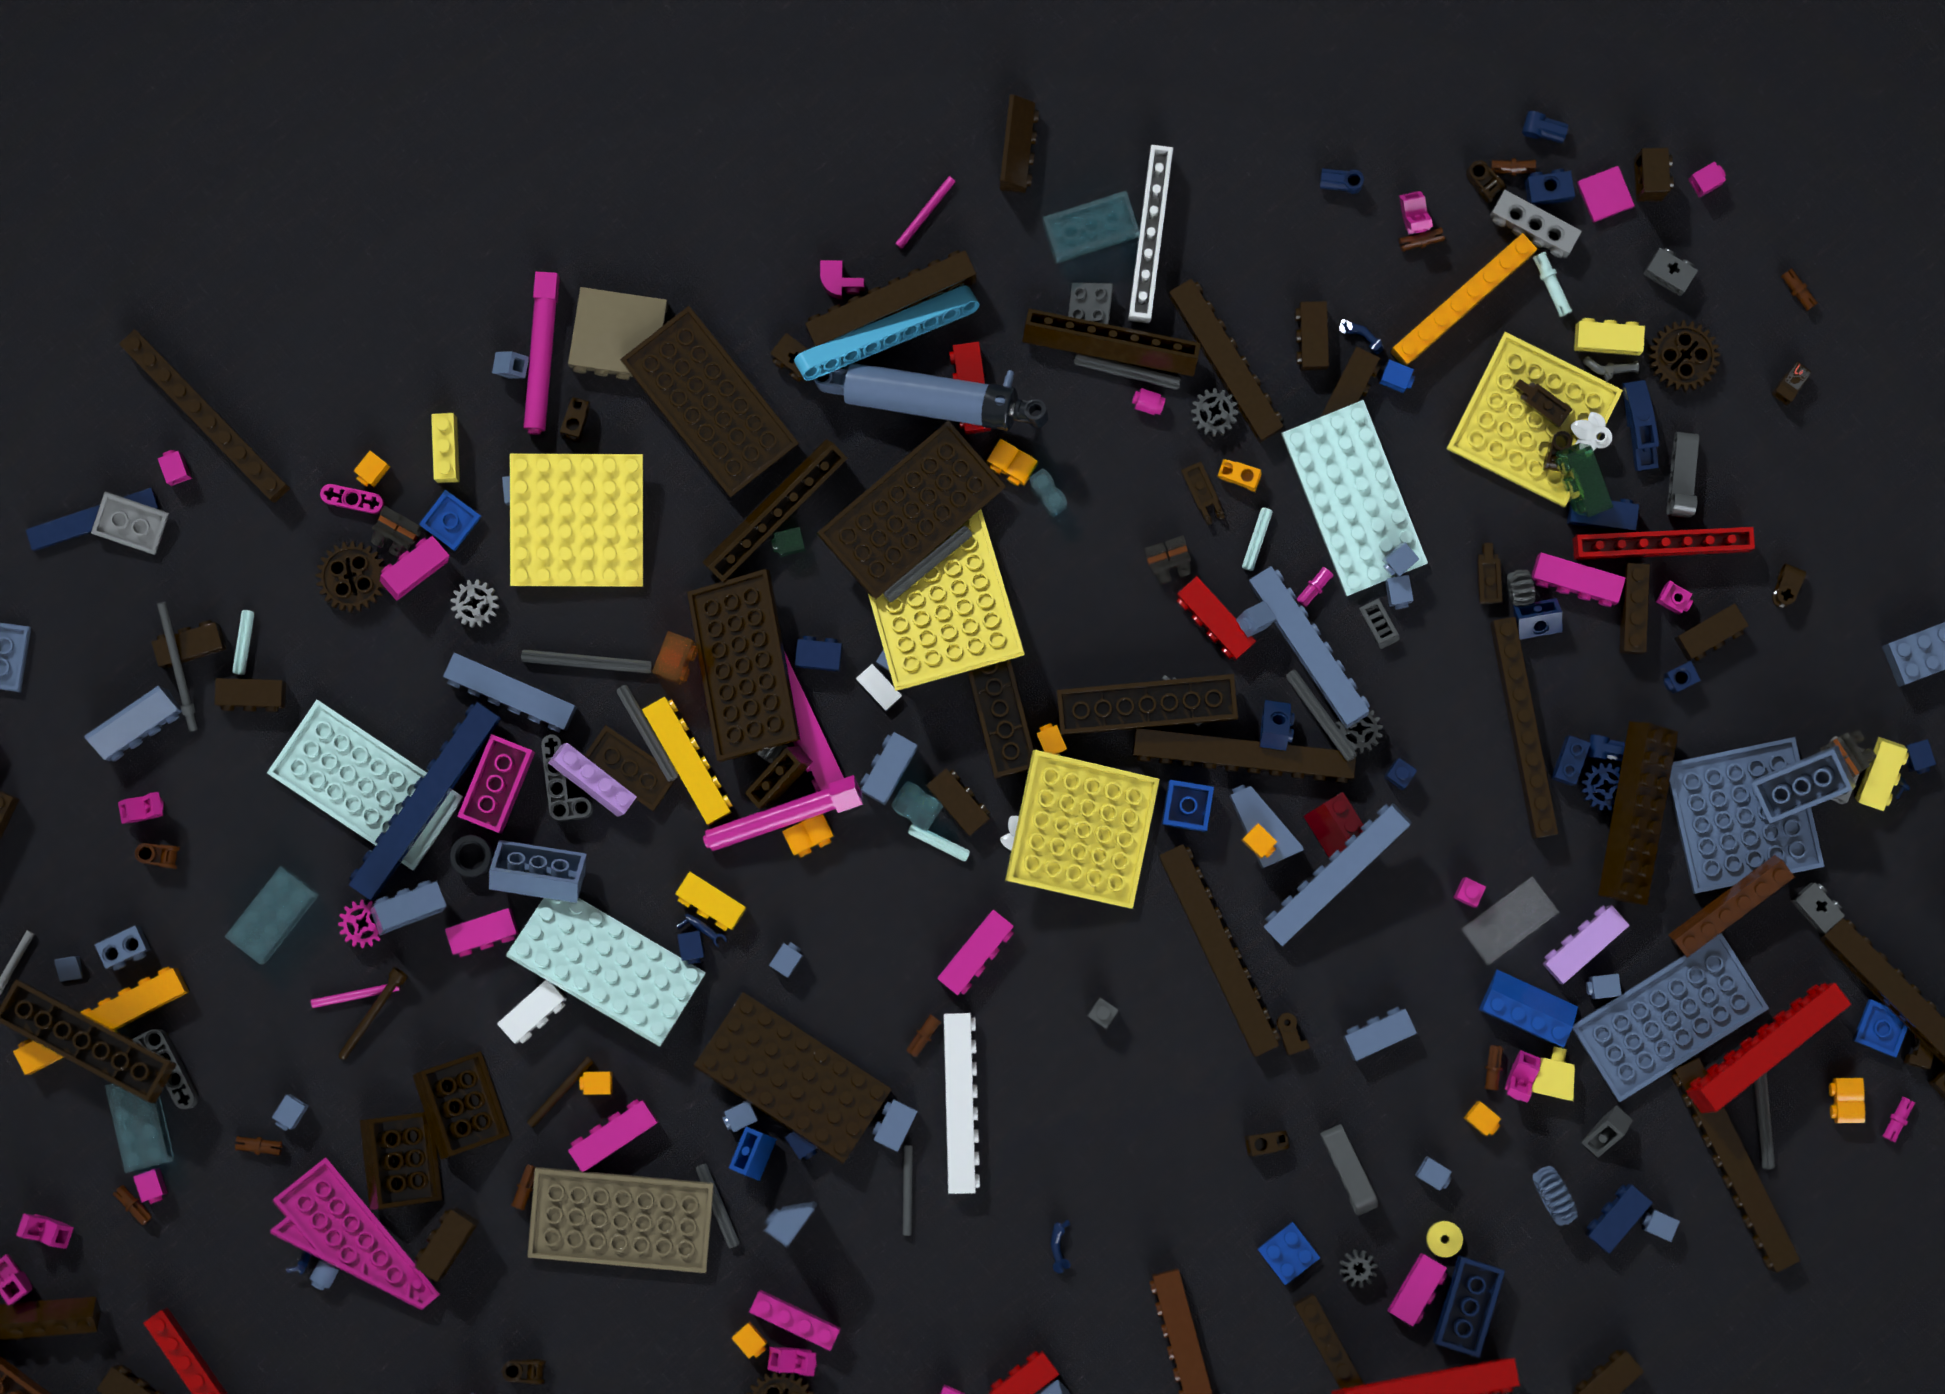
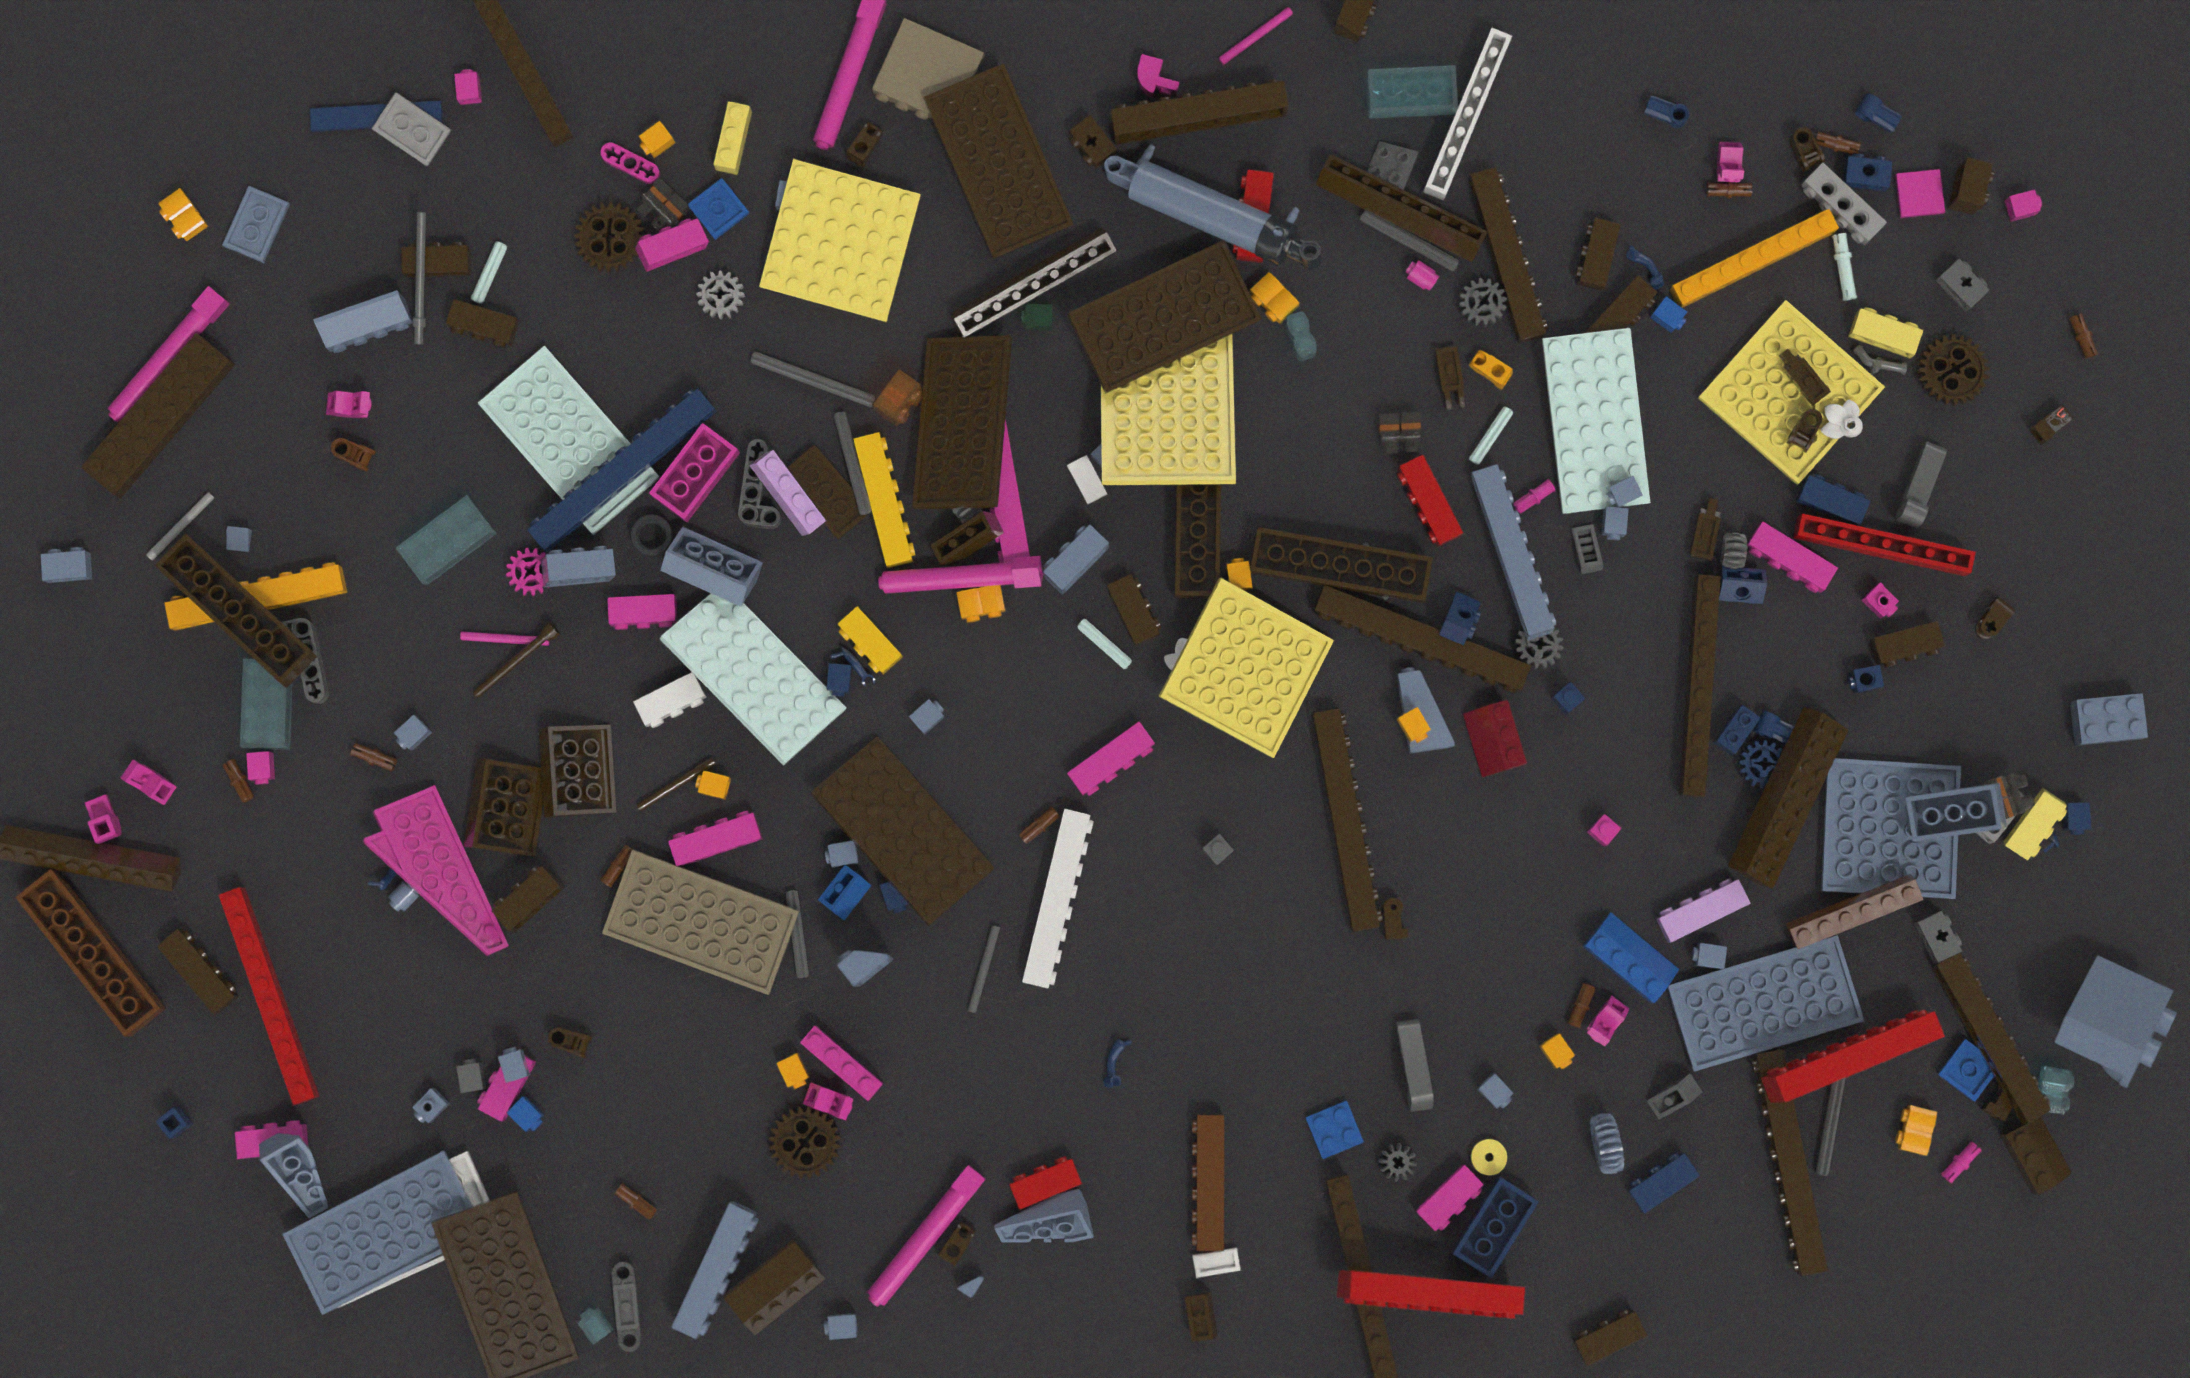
camera: 15 degrees right, 0 degrees up
(121, 943) = (295, 527): sand blue brick -> none
(509, 691) = (731, 388): sand blue brick -> none
(510, 364) = (816, 75): sand blue brick -> none
(818, 654) = (1037, 432): dark blue brick -> none
(886, 333) = (1186, 140): medium azure beam -> none
(895, 1124) = (988, 902): sand blue brick -> none
(917, 806) = (1092, 602): clear light blue brick -> none
(927, 563) = (1166, 372): dark grey axle -> none
(1187, 805) = (1354, 673): blue brick -> none
(1256, 619) = (1468, 511): sand blue brick -> none
(1266, 1143) = (1342, 1017): dark brown leg -> none
(1321, 715) = (1506, 621): dark grey axle -> none
(1337, 874) = (1481, 776): sand blue brick -> none
(1379, 1033) = (1479, 942): sand blue brick -> none
(1509, 920) = (1635, 868): clear tile -> none
(1555, 1076) = (1638, 1030): light yellow torso -> none
(1583, 480) = (1822, 461): clear green brick -> none
(1634, 609) = (1838, 600): dark brown brick -> none
(1642, 425) = (1894, 425): dark blue slope -> none
(1660, 1224) = (1701, 1200): sand blue brick -> none

